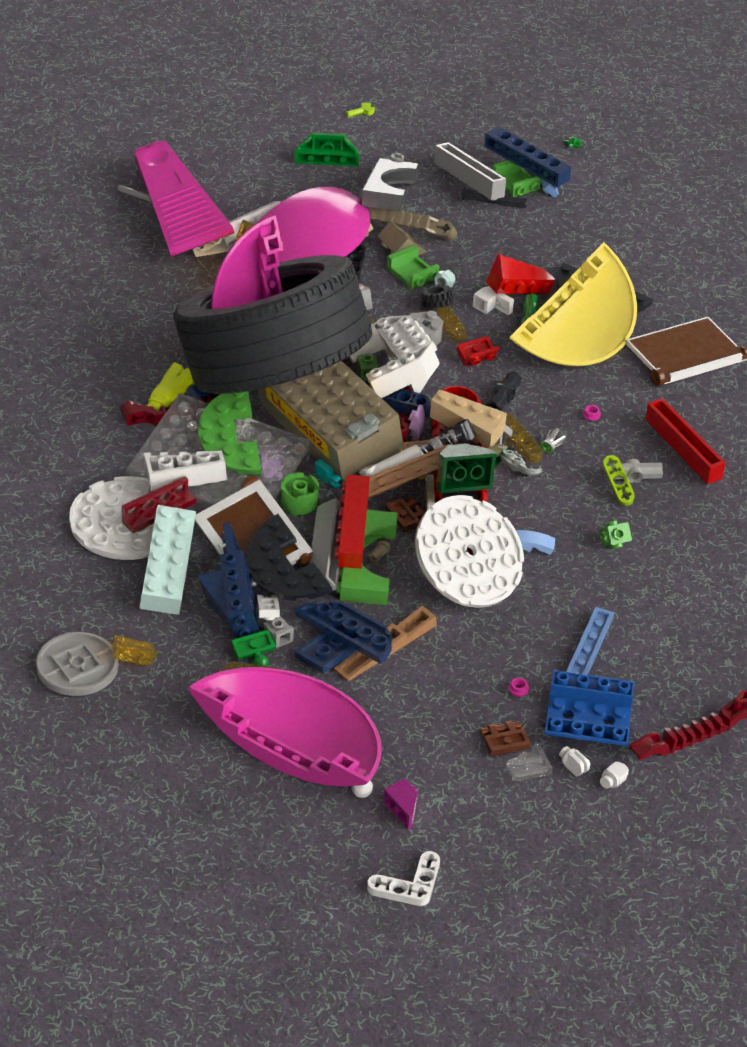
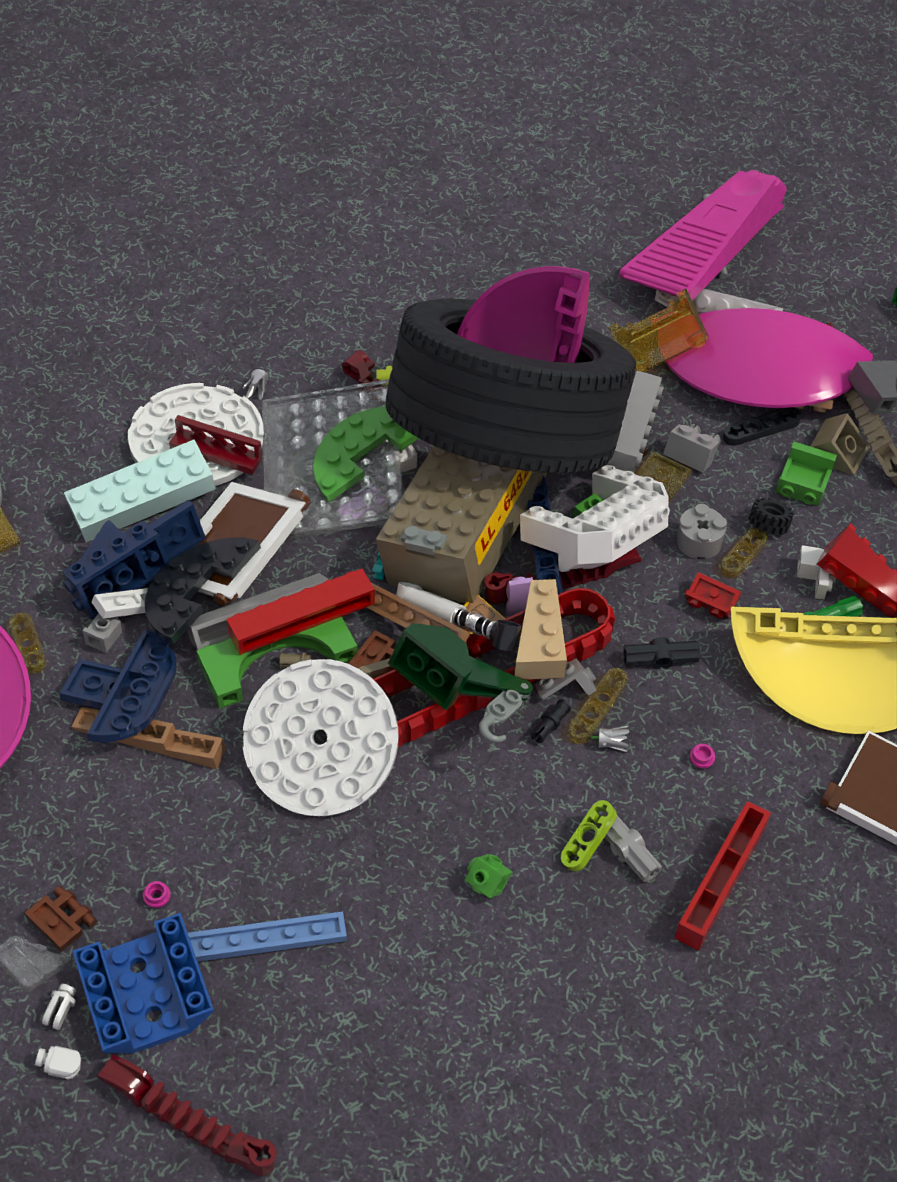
camera: 60 degrees right, 10 degrees up
(100, 466) = (258, 379): none -> flat silver piece
(198, 468) = (277, 434): white wedge -> none
(254, 646) = (66, 622): green plate -> none
(299, 494) = (328, 549): bright green brick -> none
(445, 278) = (811, 511): light aqua rock -> none
(535, 539) = (419, 798): light blue slope -> none

